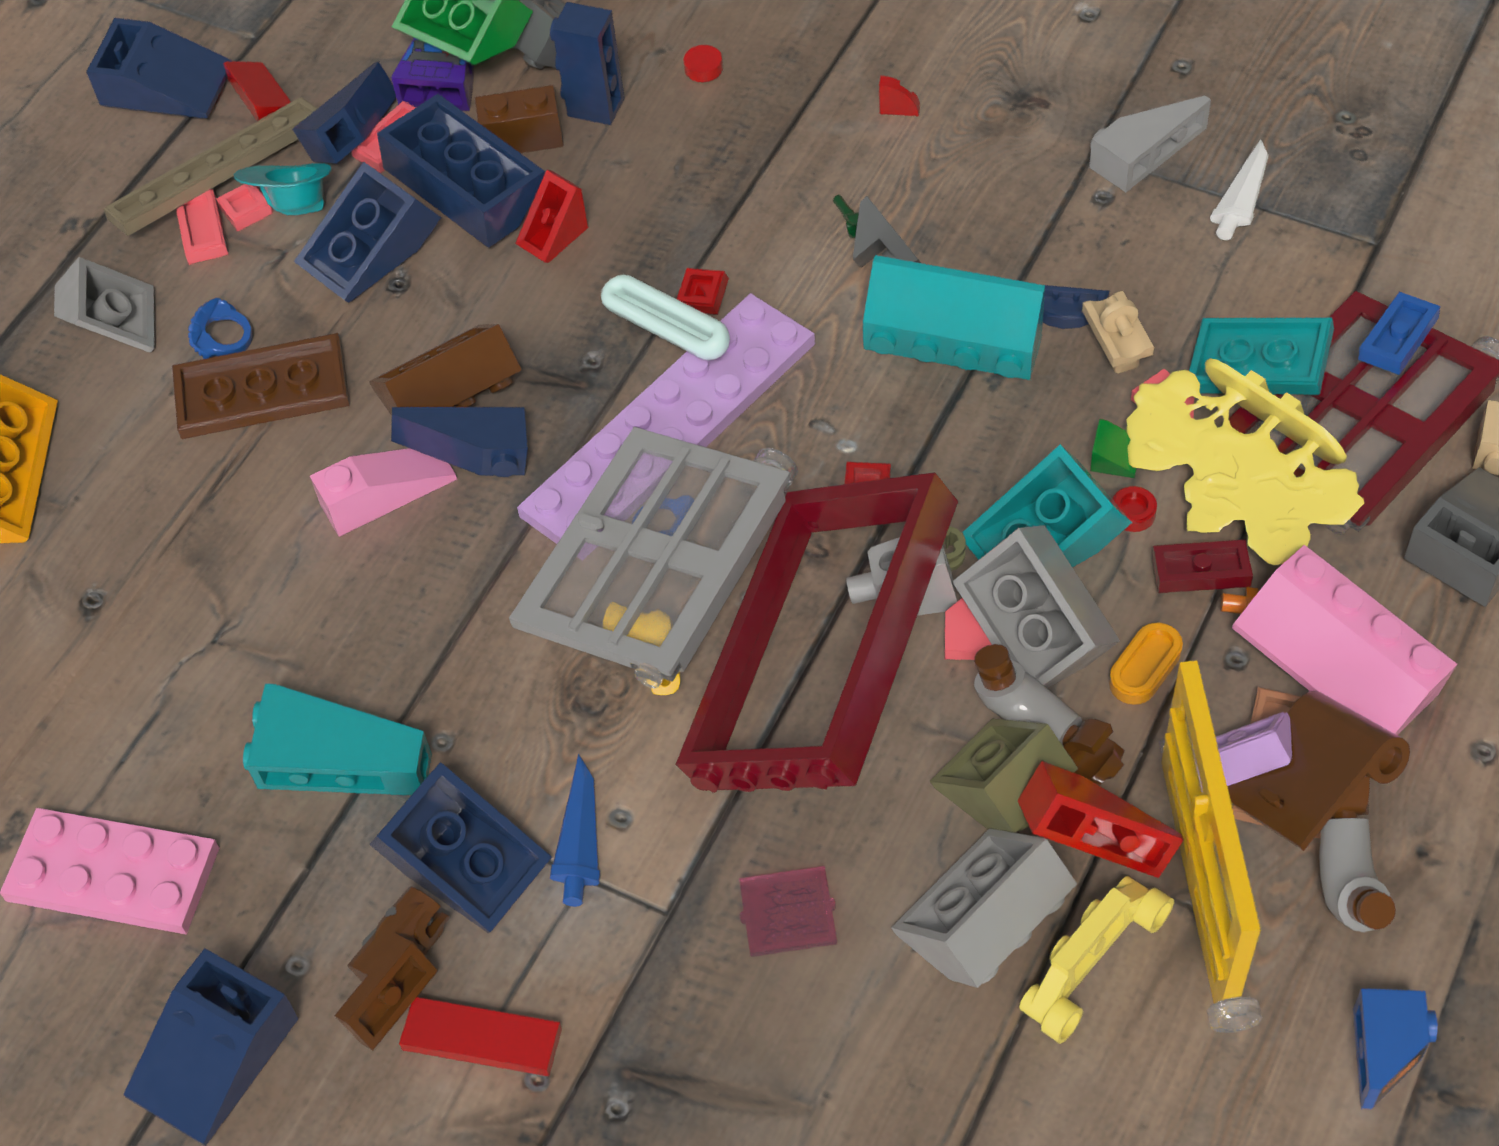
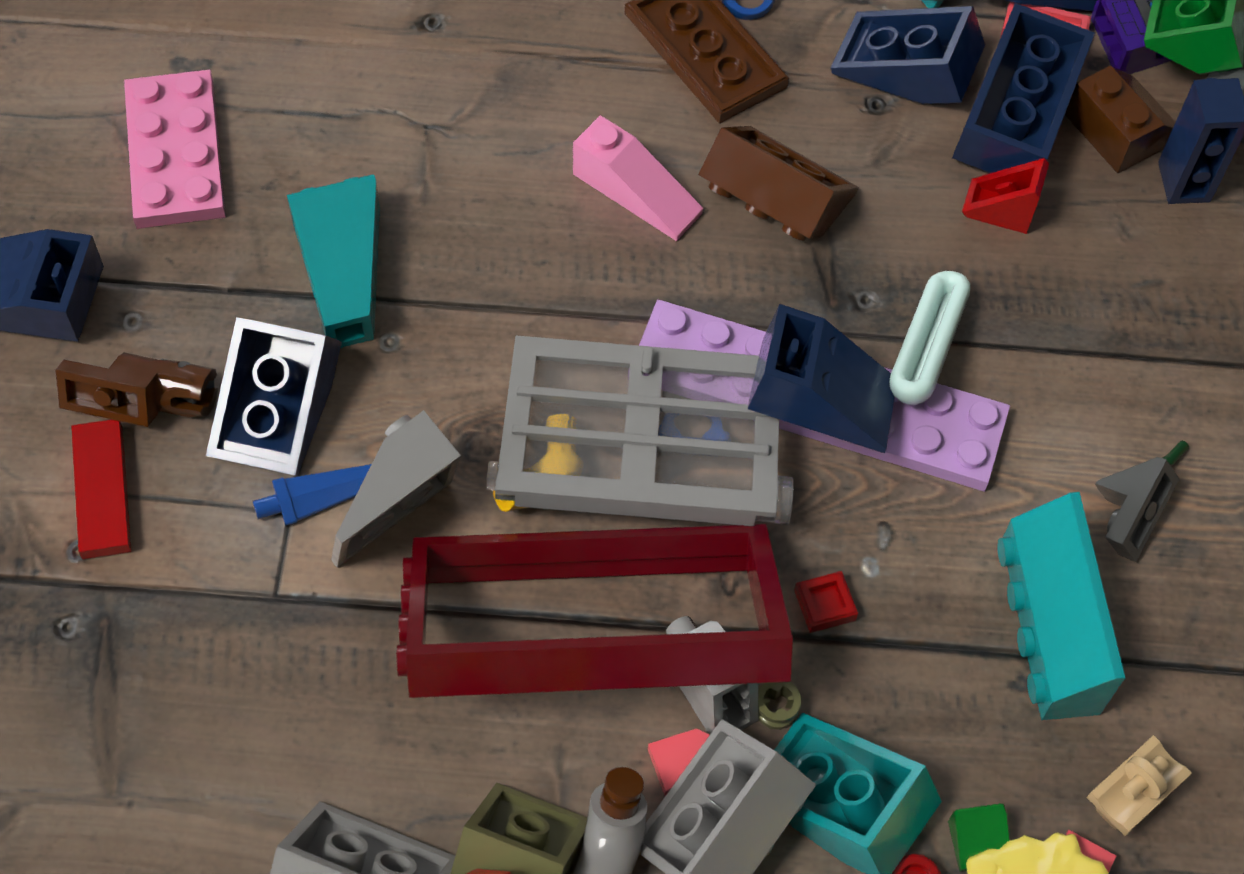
camera: 60 degrees right, 5 degrees up
(472, 438) = (714, 238): dark blue slope -> none
(619, 761) = (406, 473): none -> light grey slope
(677, 400) = (821, 381): none -> dark blue slope
(703, 289) = (991, 360): red tile -> none
(787, 911) = (308, 700): clear pink piece -> none
(1065, 305) = (1154, 712): dark blue tile -> none

